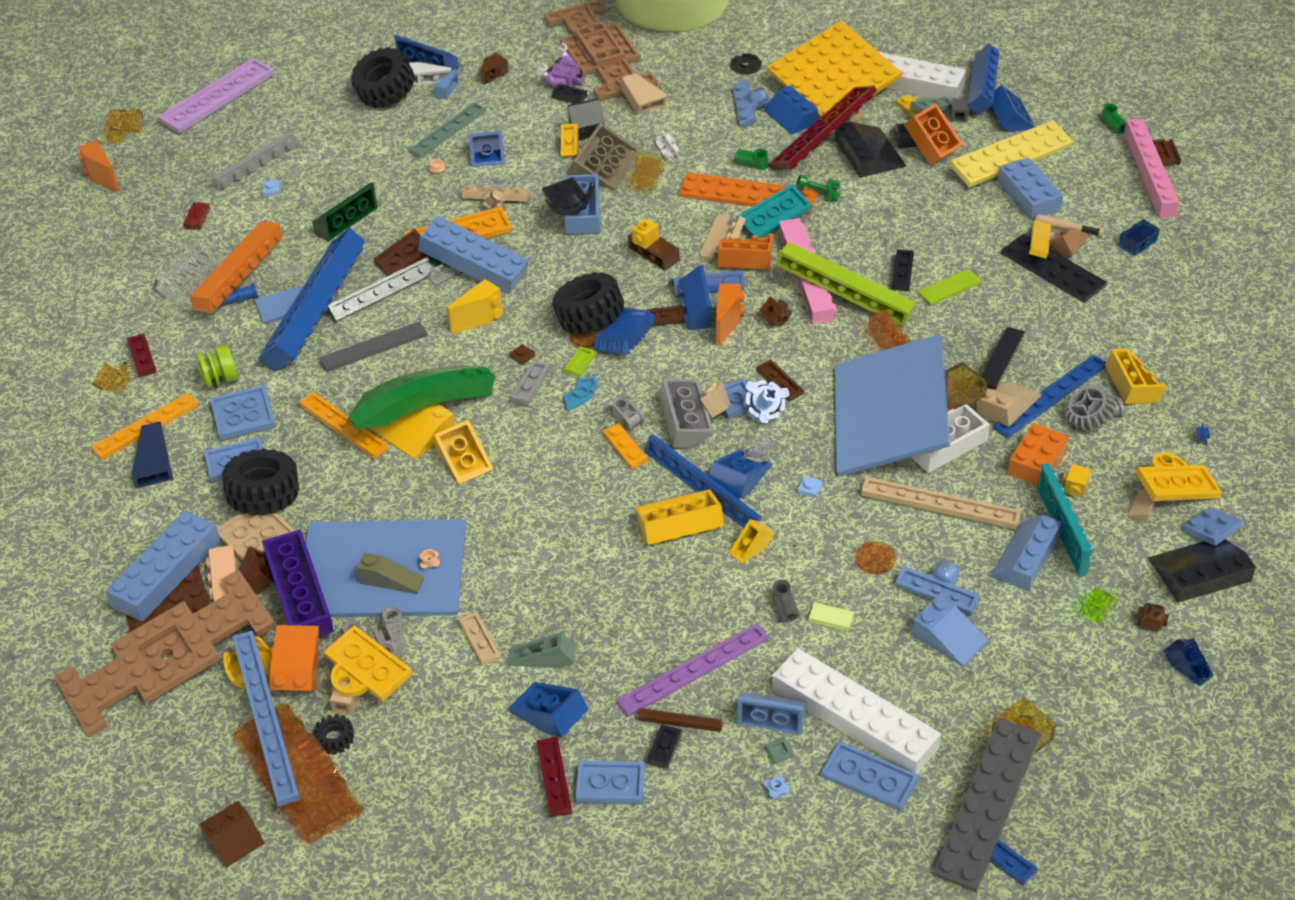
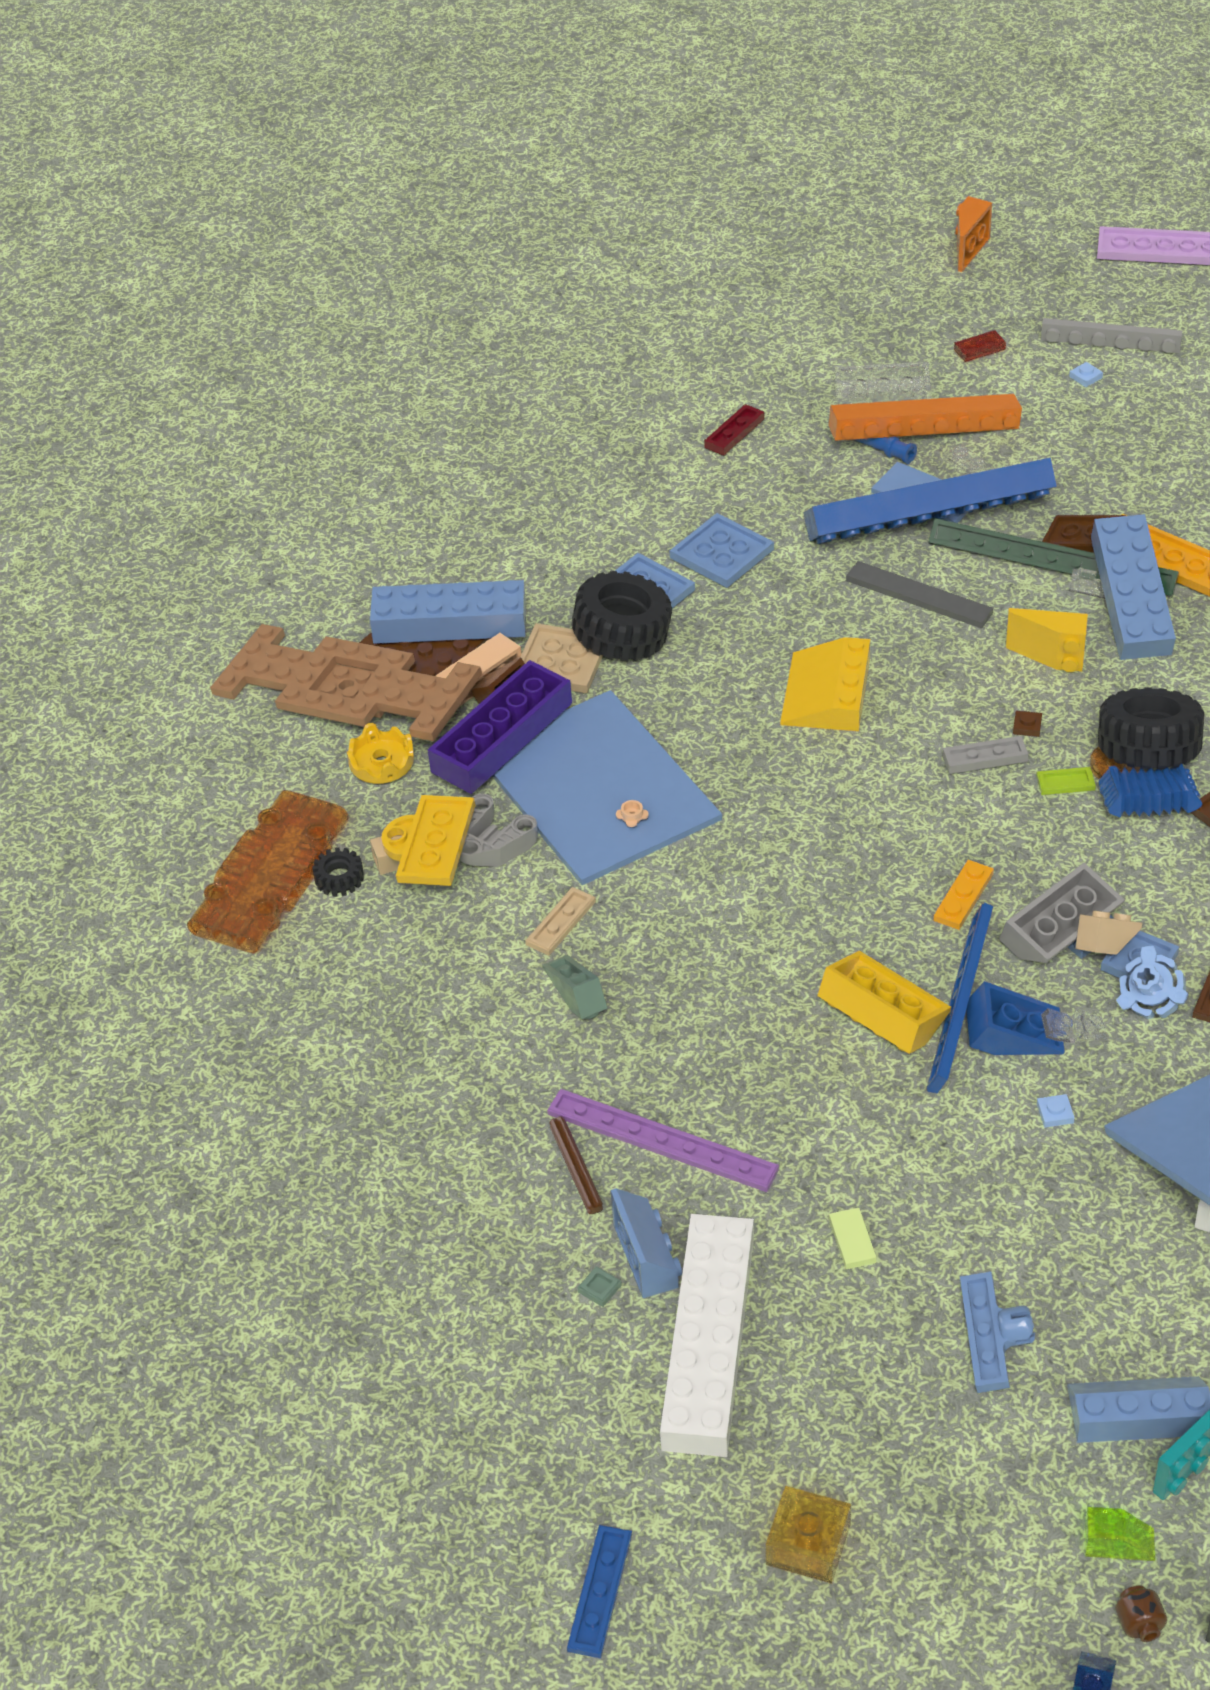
camera: 60 degrees right, 0 degrees up
(111, 379) = (678, 427): clear yellow brick -> none
(122, 122) = (1058, 208): clear yellow brick -> none
(132, 432) = (640, 492): light orange plate -> none
(151, 457) = (598, 520): dark blue slope -> none
(216, 366) = (759, 488): lime wheel -> none
(231, 834) = (158, 863): reddish brown slope -> none
(266, 719) = (304, 800): medium blue plate -> none
(295, 658) = (398, 780): orange slope -> none
(339, 423) = (773, 637): light orange plate -> none
(346, 213) = (1100, 450): dark green slope -> none
(385, 573) = (579, 790): olive slope -> none
(419, 390) = (861, 661): green slope -> none
(462, 452) = (817, 754): yellow slope -> none
(550, 708) = (500, 1034): blue slope -> none
(554, 777) = (410, 1088): dark red plate -> none
(581, 394) = (1015, 809): dark azure tile -> none
(610, 782) = (437, 1144): medium blue plate -> none
(626, 412) = (1013, 864): light grey piece -> none
(664, 746) = (523, 1168): black plate -> none
(751, 540) = (908, 1092): yellow slope -> none
(776, 792) = (543, 1316): light blue plate -> none
(784, 601) = (834, 1174): dark grey piece -> none
(869, 776) = (625, 1400): medium blue tile -> none
(876, 558) = (990, 1239): clear orange tile -> none
(941, 503) = (1149, 1268): tan plate -> none
(948, 631) = (921, 1376): medium blue slope -> none
(987, 805) = (654, 1544): dark grey plate -> none

